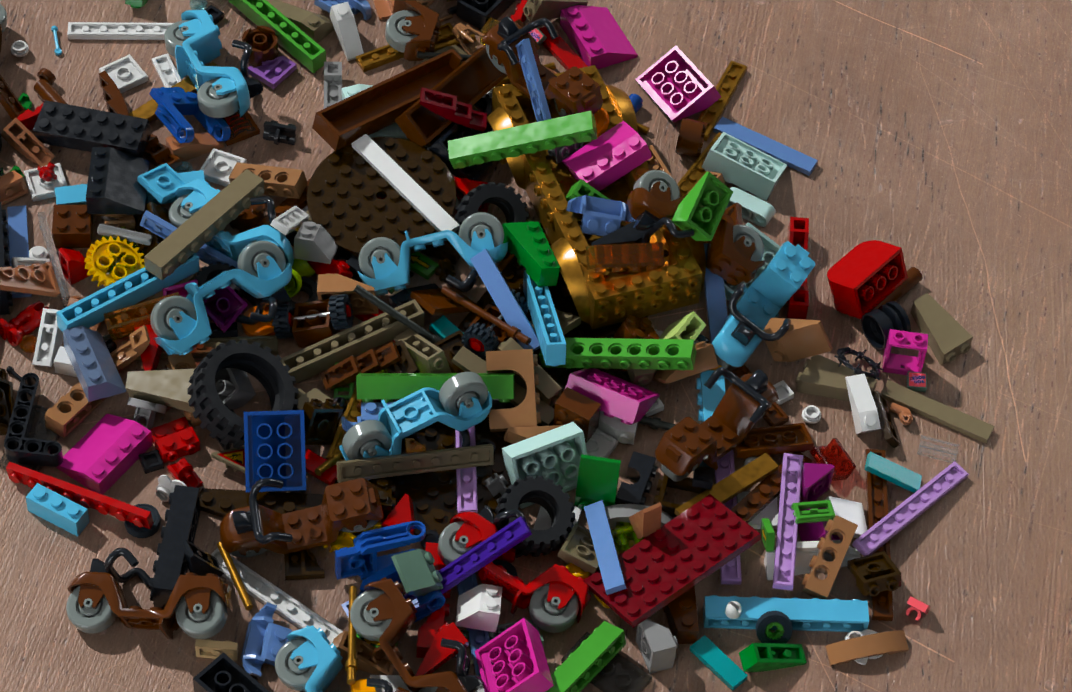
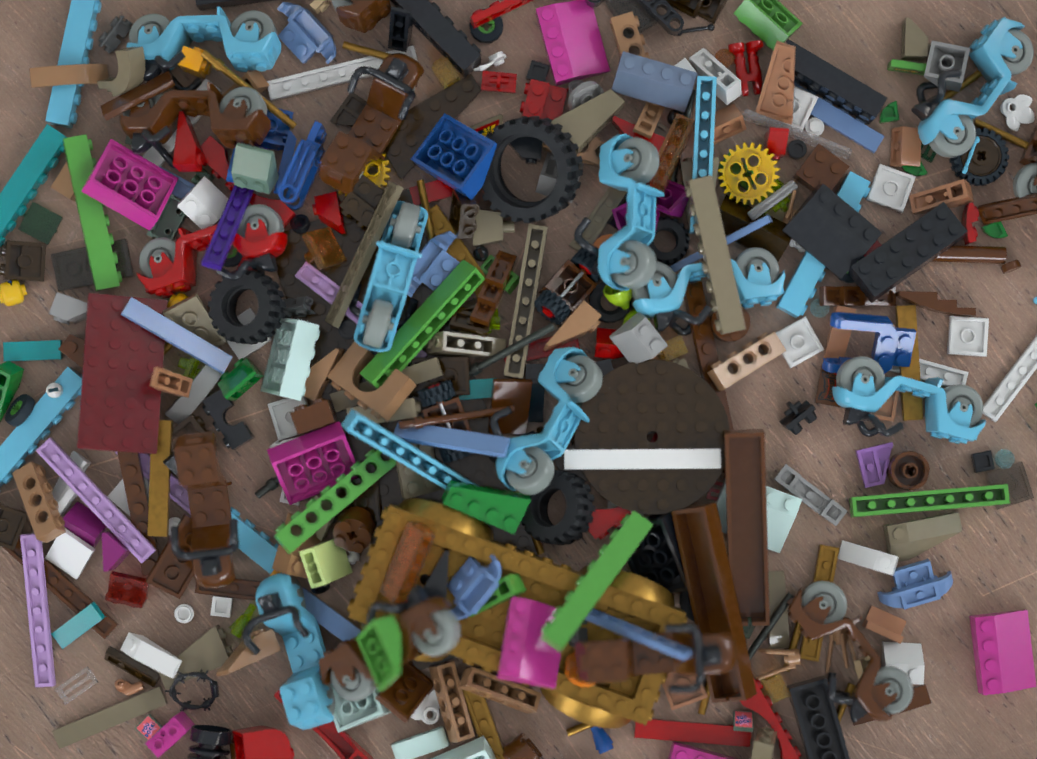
camera: 135 degrees right, 35 degrees up
(47, 172) = (893, 188): red plant -> none
(161, 182) = (803, 268): medium azure tile -> none
(209, 520) = (445, 72): none -> clear yellow brick
(290, 220) = (672, 331): white tile -> none
(437, 499) = (323, 248): none -> clear orange tile
(453, 110) = (686, 558): dark red slope -> none
(767, 534) = (98, 475): bright green tile -> none
(780, 371) = (238, 626): none -> clear neon green cone
(814, 514) = (87, 534): bright green tile -> none

